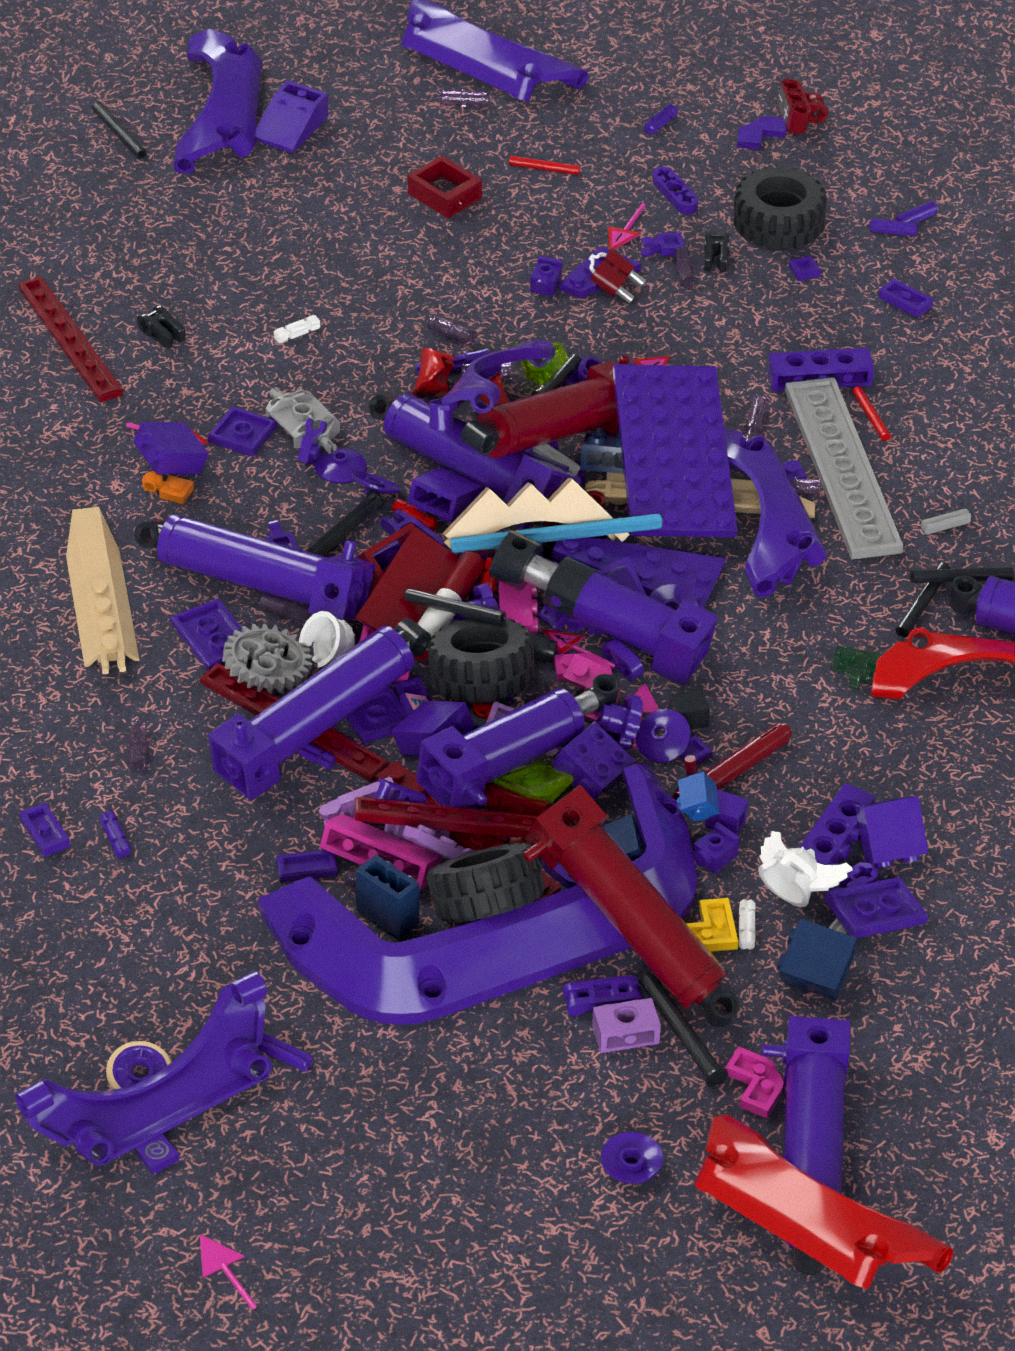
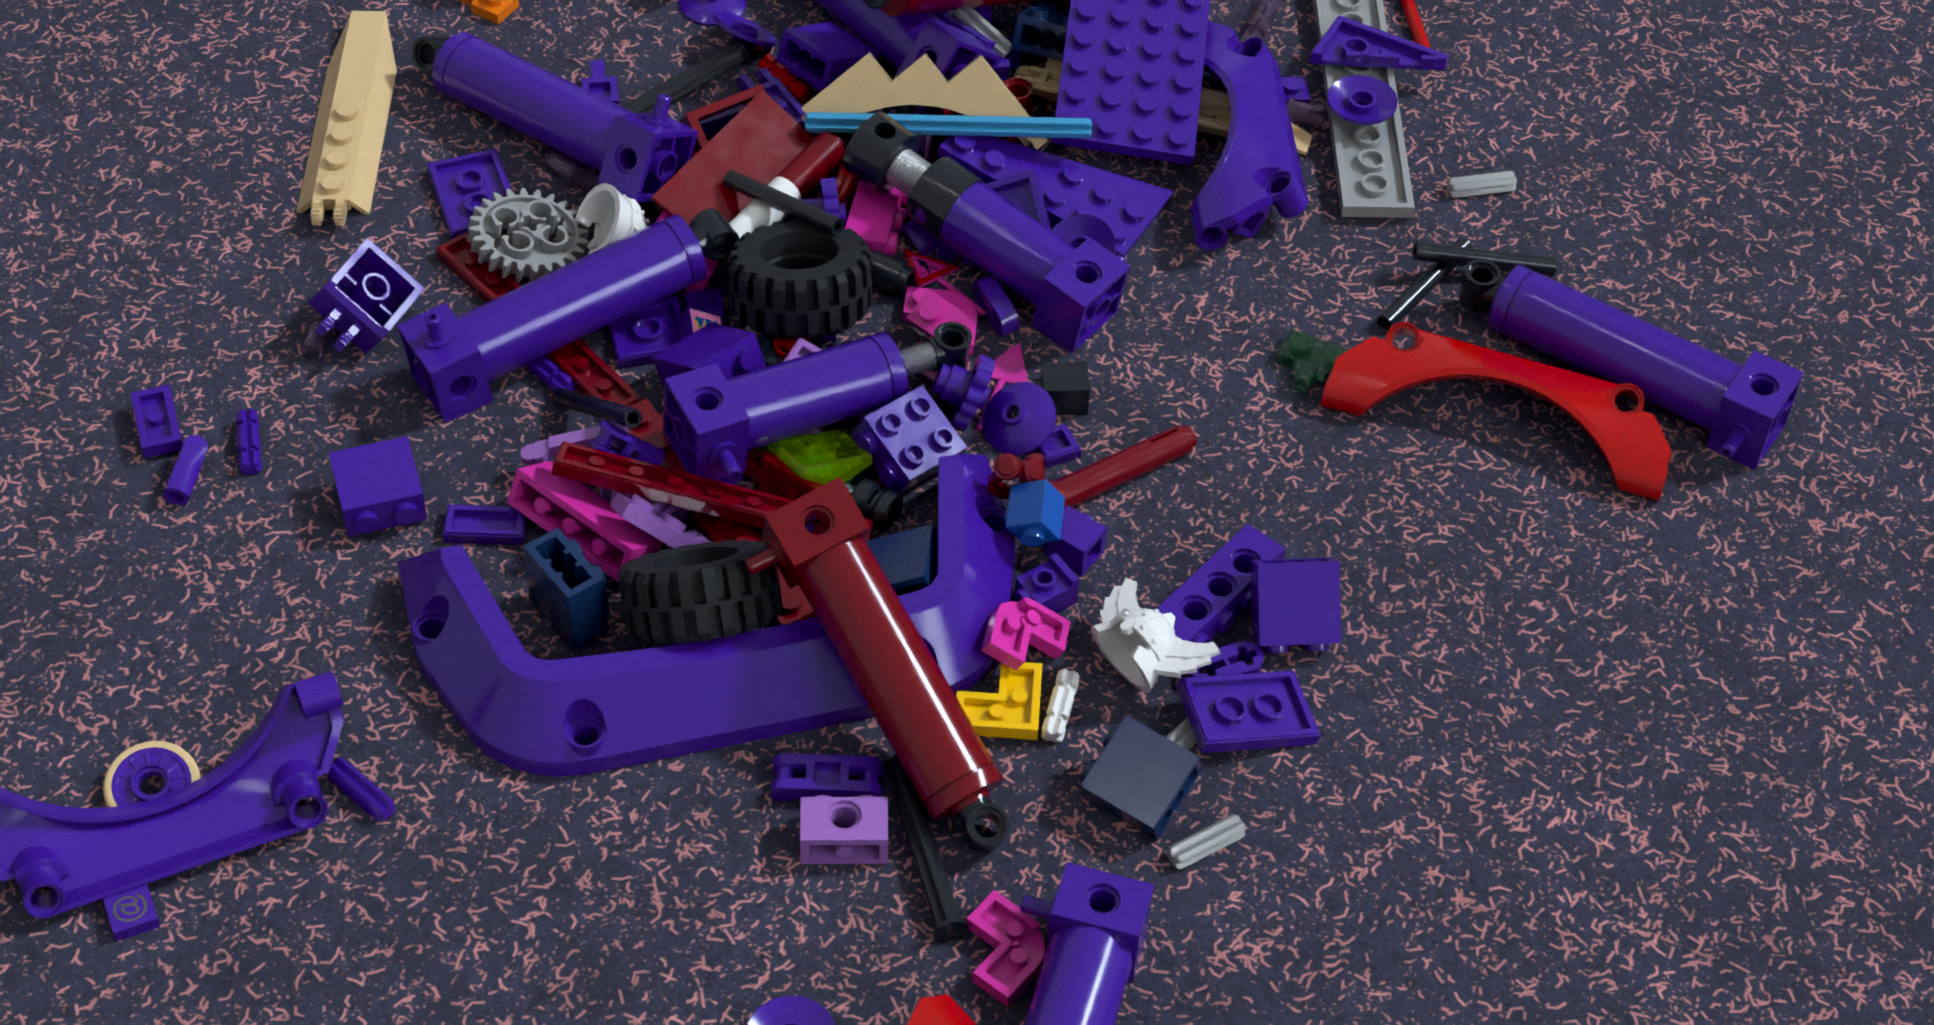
camera: 10 degrees right, 5 degrees up
(79, 860) = (186, 470): none -> dark purple bar
(169, 719) = (365, 297): none -> dark purple hinge
(224, 849) = (378, 486): none -> dark purple brick
(366, 771) = (597, 407): none -> black piece
(675, 767) = (1011, 467): none -> dark red piece
(708, 876) = (1023, 623): none -> dark pink plate
(832, 430) = (1364, 46): none -> dark purple wing
(847, 471) = (1362, 100): none -> dark purple dish
(870, 995) = (1206, 841): none -> light grey axle

